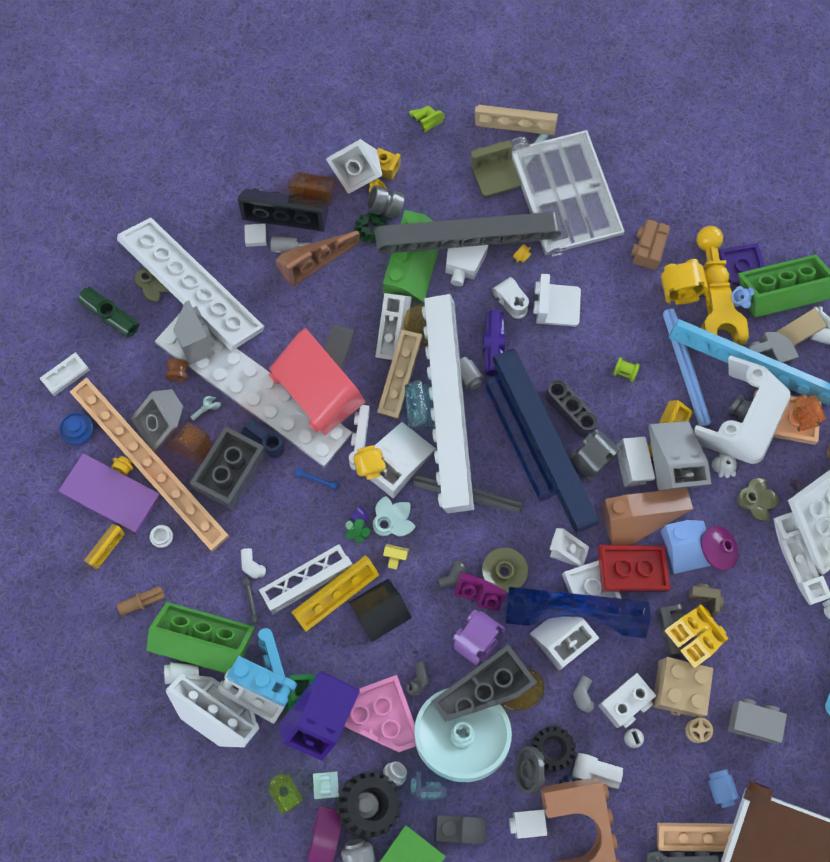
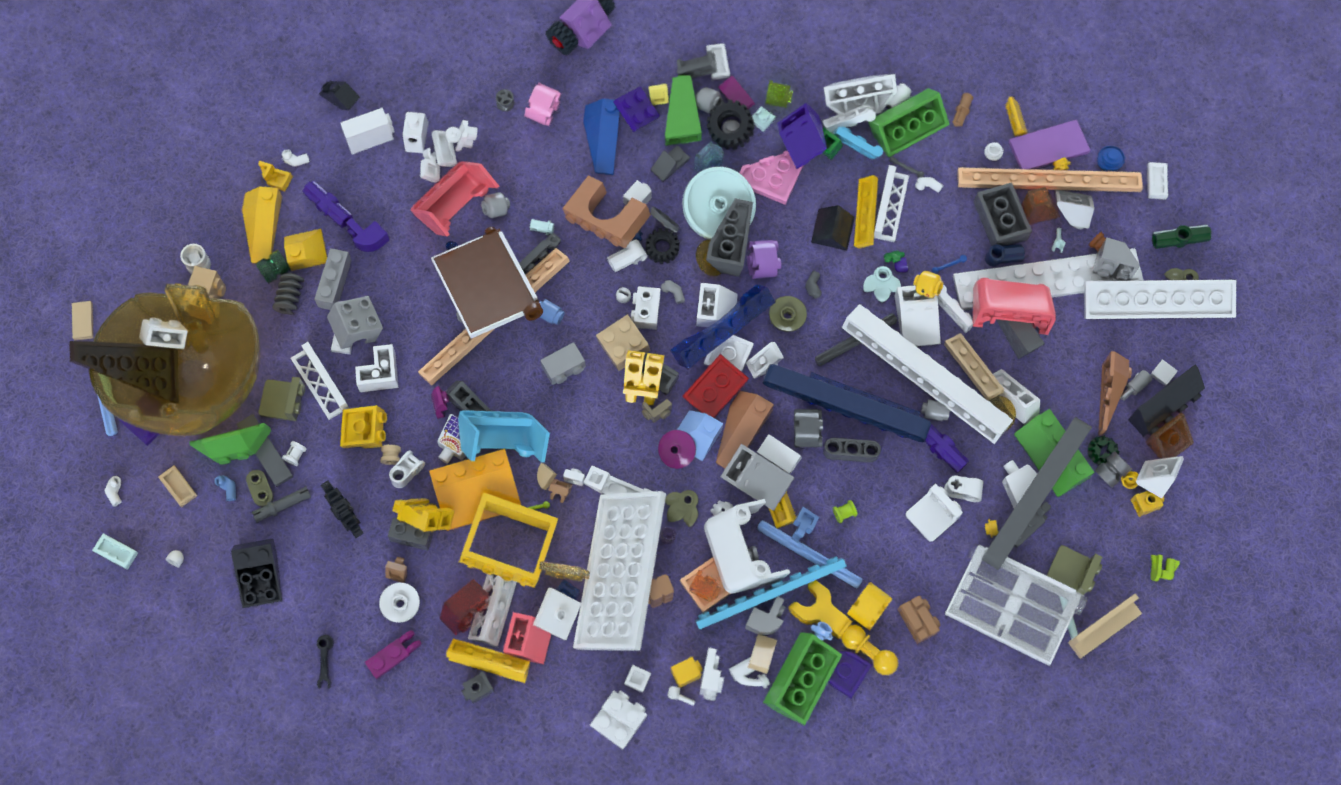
camera: 135 degrees right, 0 degrees up
(261, 681) = (851, 120): medium azure plate -> none
(395, 554) = (858, 263): light yellow tile -> none
(395, 772) = (732, 155): white plate -> none
(419, 405) = (942, 356): clear light blue bracket -> none
(421, 680) = (769, 213): dark grey arm -> none
(485, 593) = (782, 290): magenta slope -> none
(668, 390) = (805, 522): none -> medium blue plate
(704, 730) = (588, 327): tan wheel -> none

